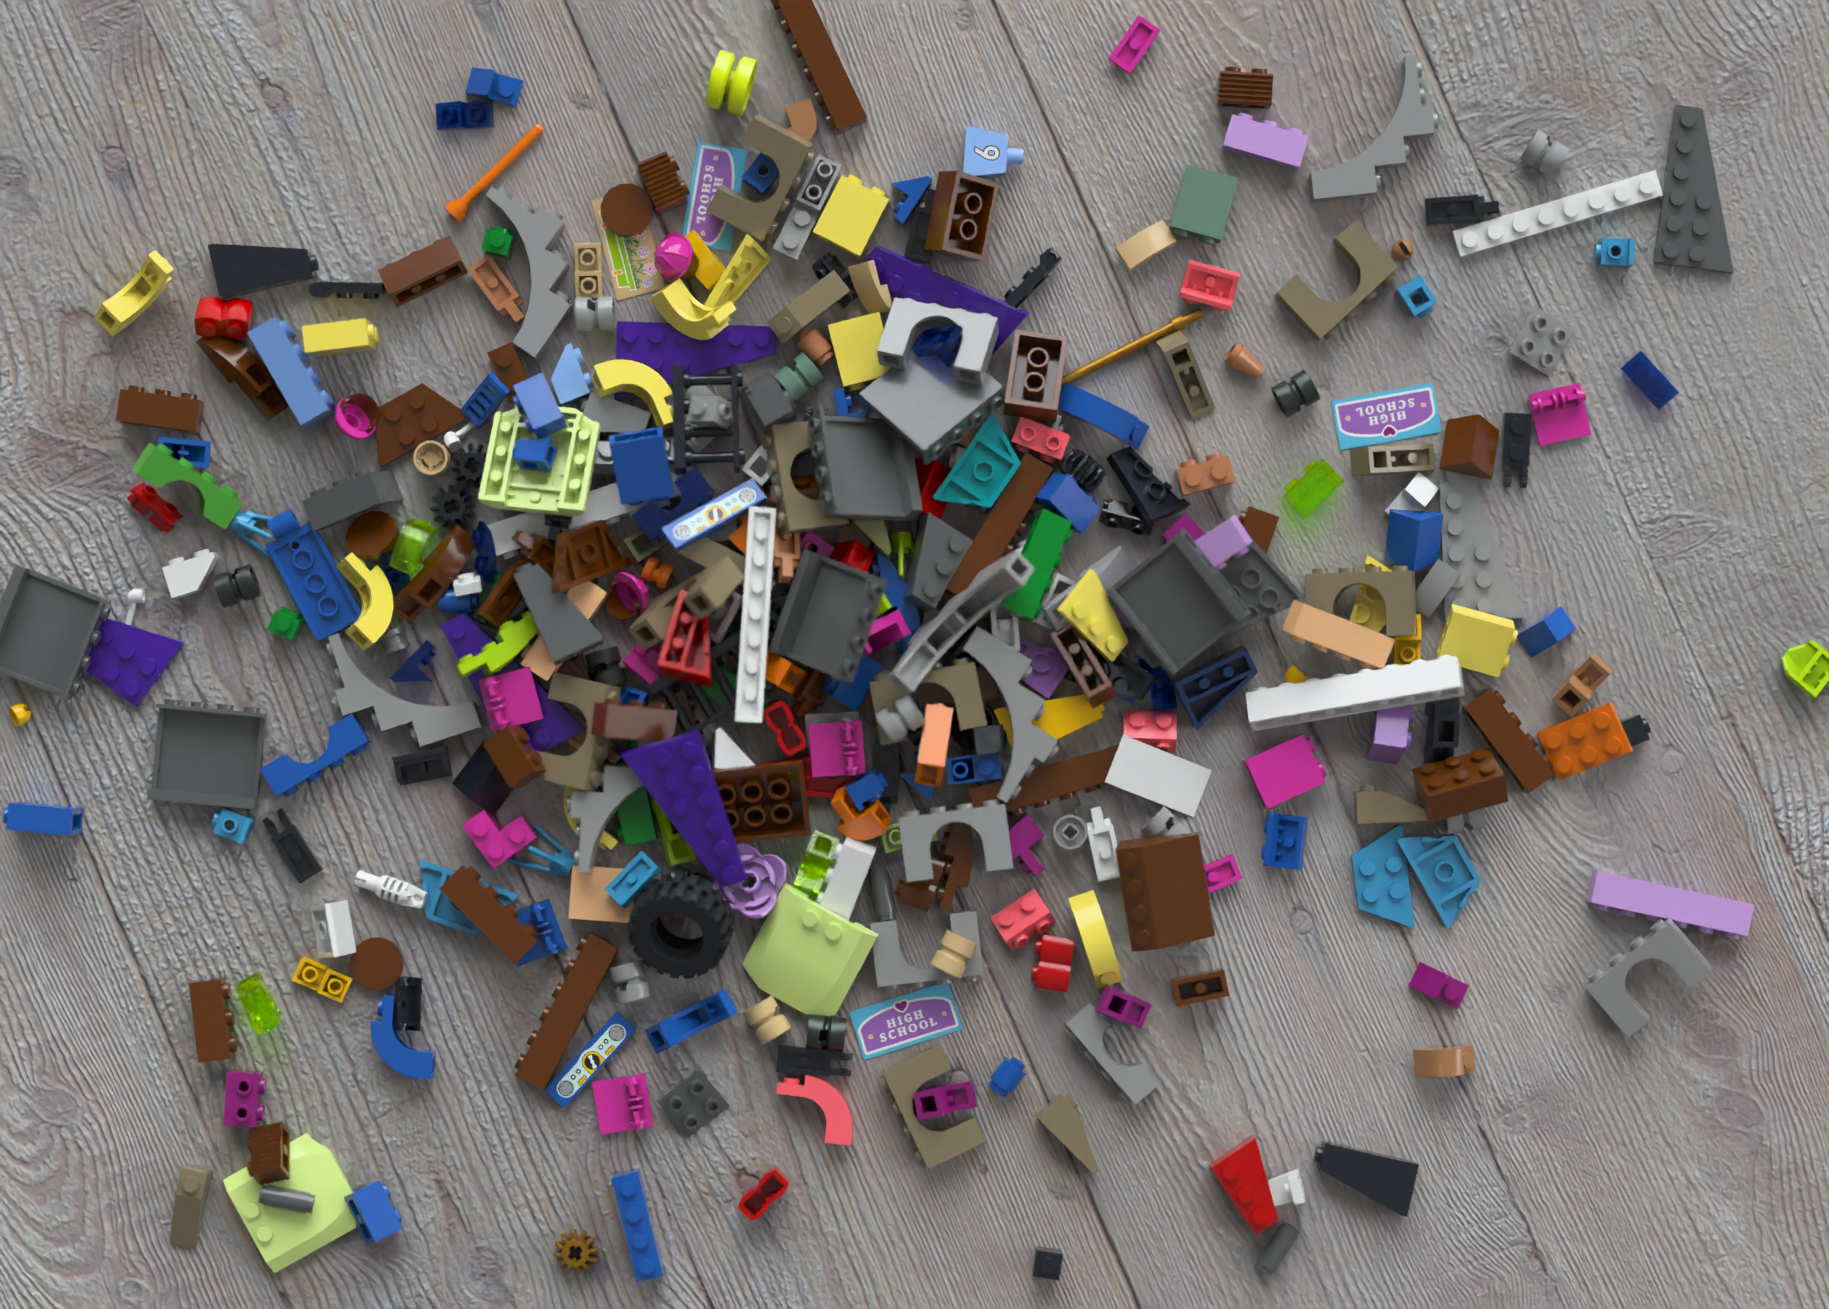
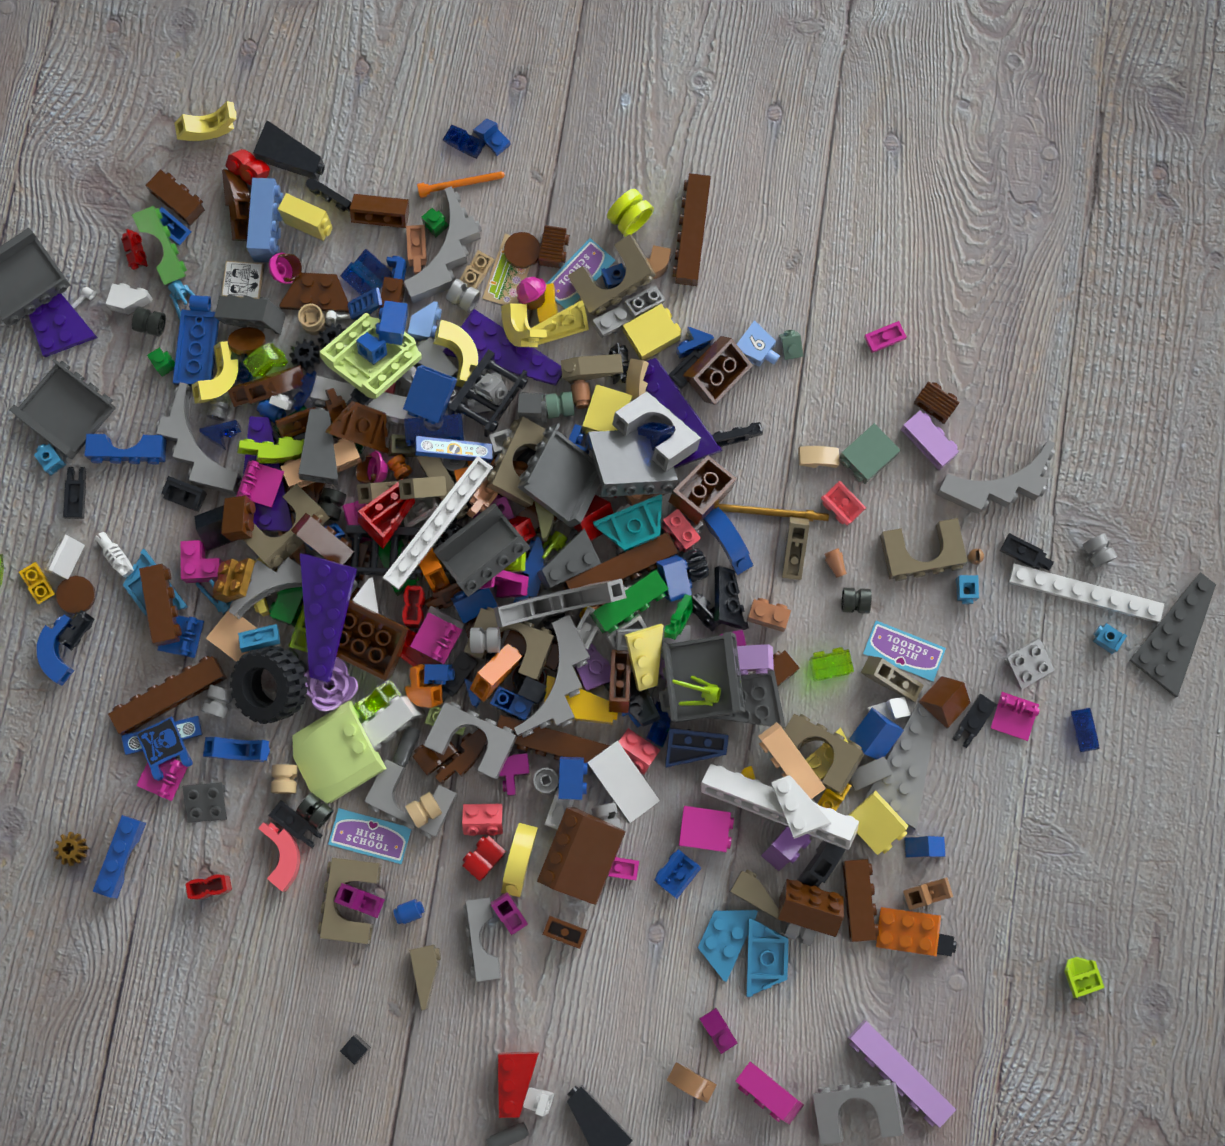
camera: 35 degrees right, 10 degrees down
(312, 462) = (243, 279): none -> tile
(458, 359) = (366, 273): none -> clear blue slope
(497, 333) = (399, 267): none -> blue bracket
(559, 832) = (233, 579): none -> pearl gold plate
(599, 1069) = (162, 743): none -> flag
(1027, 125) = (791, 344): none -> sand green bracket
(1098, 811) = (571, 778): none -> blue brick
(1106, 548) = (680, 618): none -> green hinge
(1199, 617) = (709, 692): none -> lime plant
(1379, 684) = (799, 810): none -> white wing
(1537, 1019) = (768, 1094): none -> dark pink wedge

